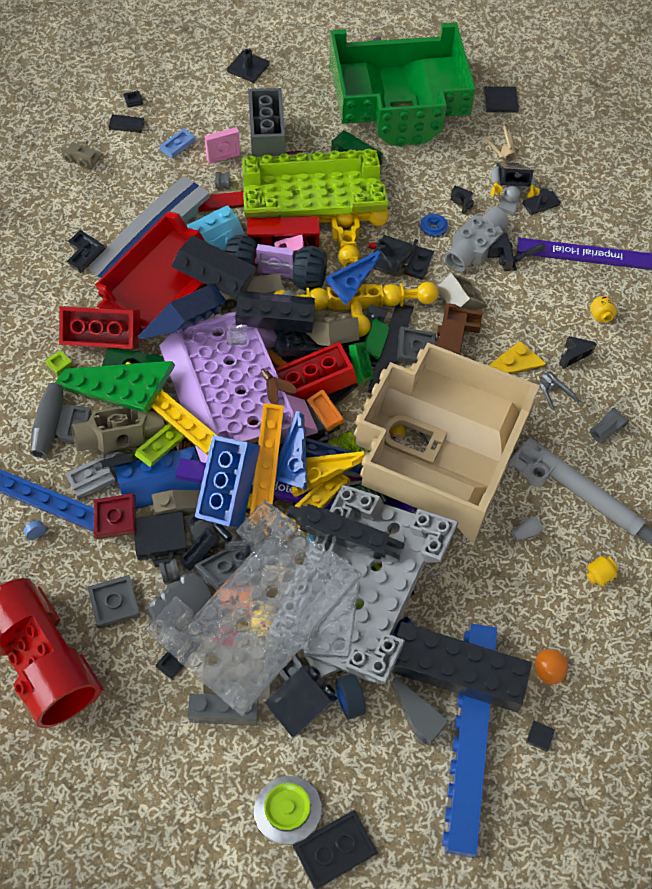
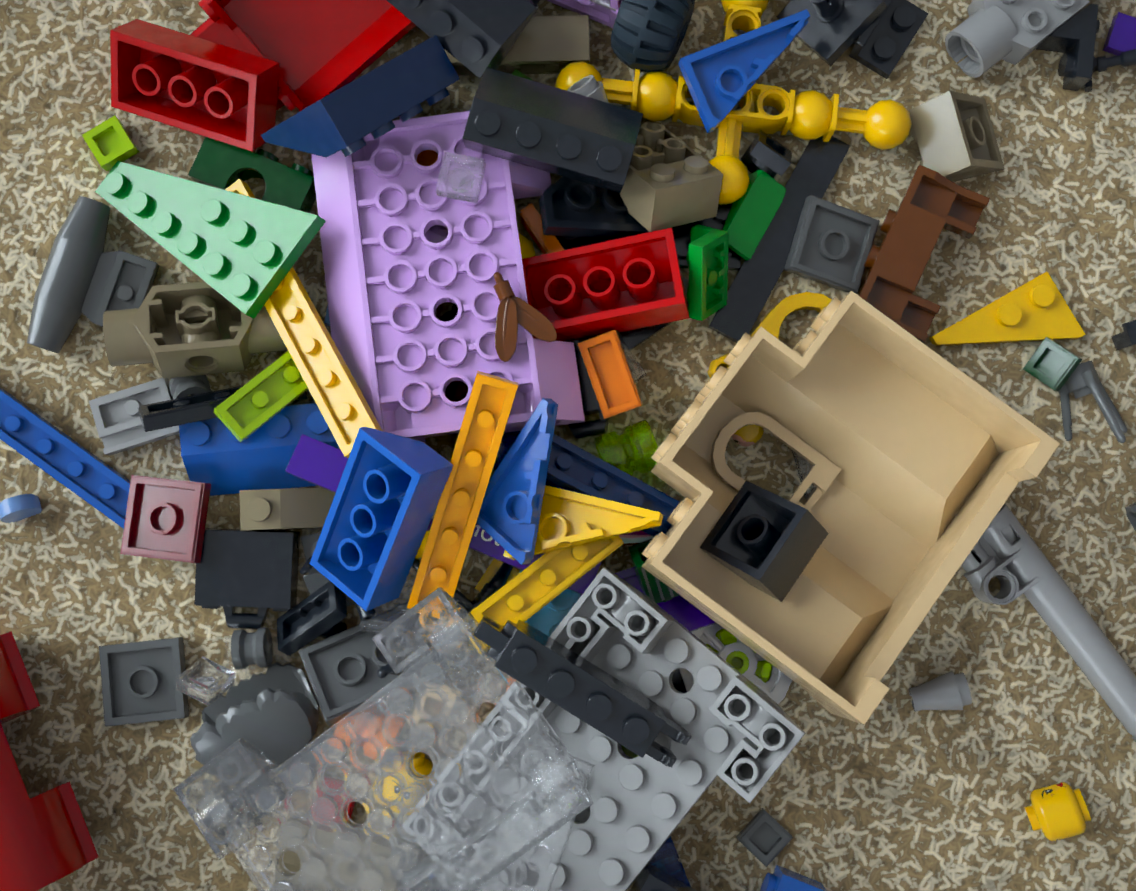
camera: 10 degrees right, 25 degrees up
(146, 592) = (205, 681): none -> clear plate
(418, 456) = (765, 539): none -> black slope
(458, 616) = (764, 837): none -> dark grey tile
(535, 375) = (1052, 364): none -> tile

